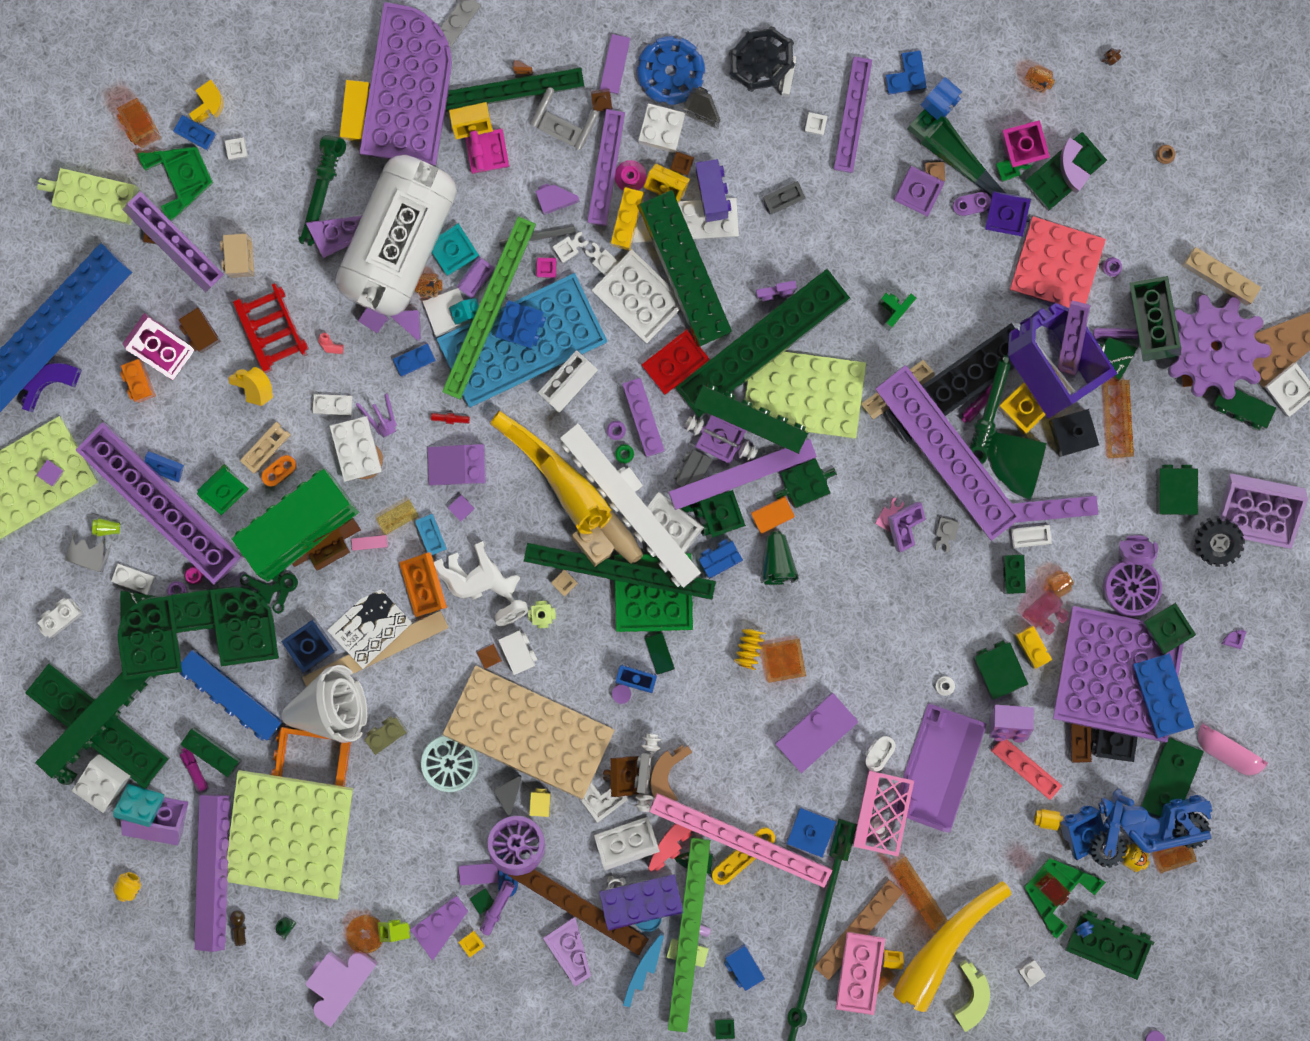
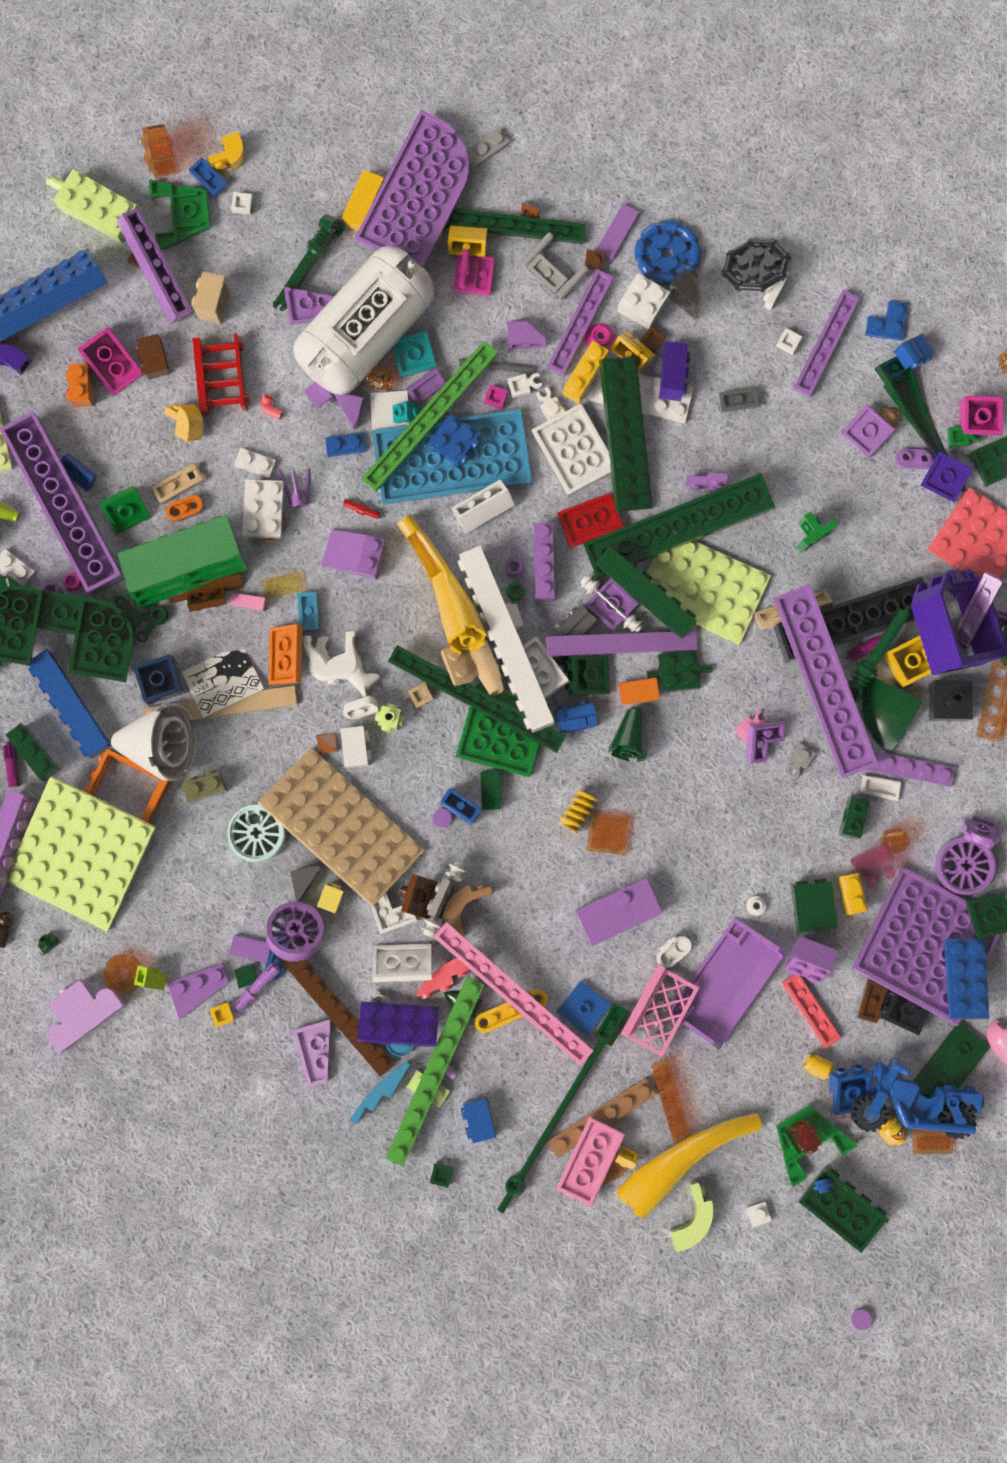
camera: 15 degrees right, 5 degrees down
(461, 508) = (345, 595): medium lavender tile -> none

